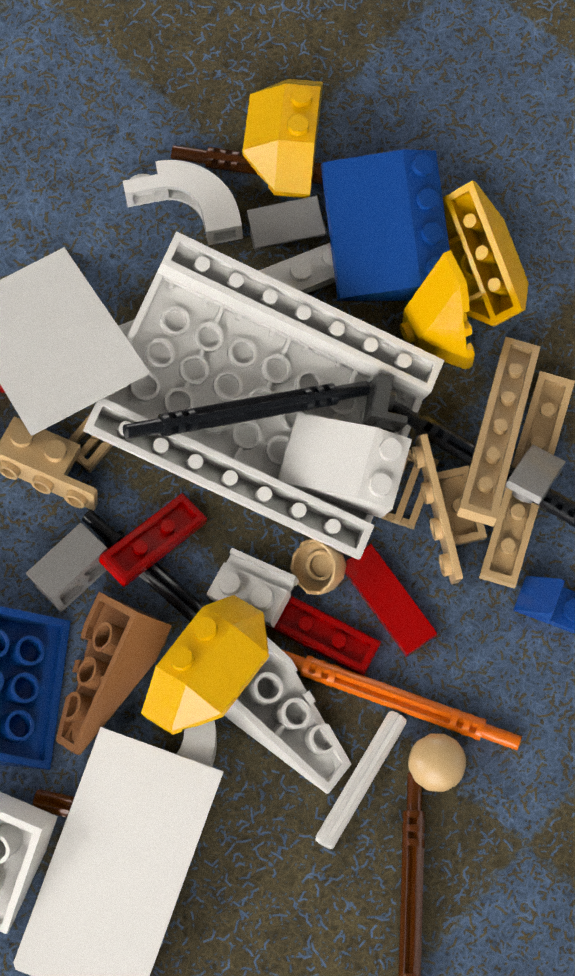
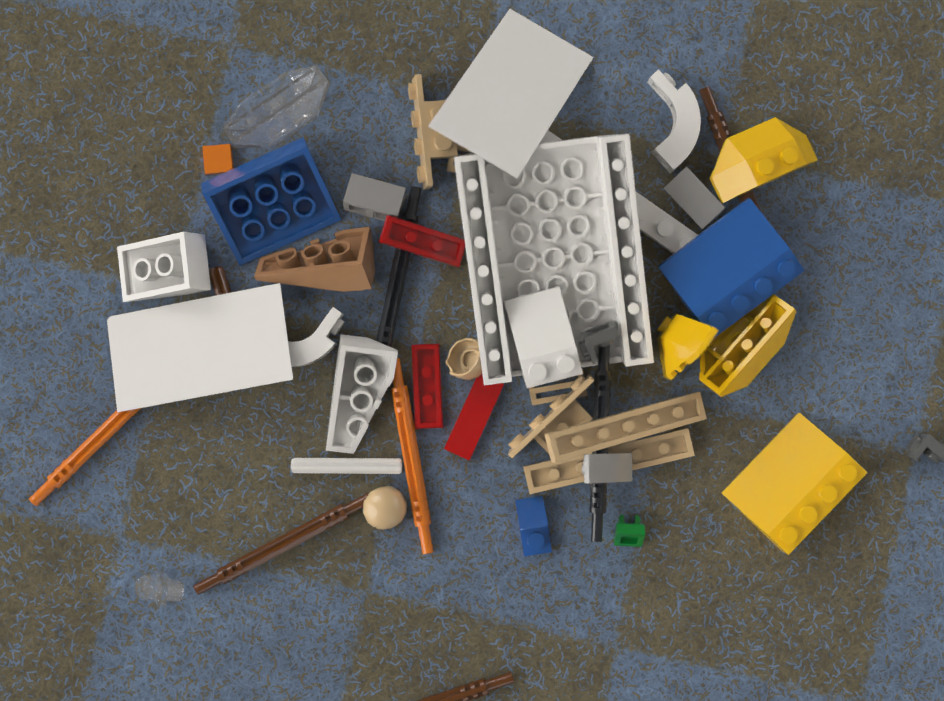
camera: 60 degrees right, 15 degrees up
(207, 666) = (356, 330): yellow wedge -> none
(245, 410) = (536, 254): black axle -> none
(254, 583) = (429, 324): white plate -> none

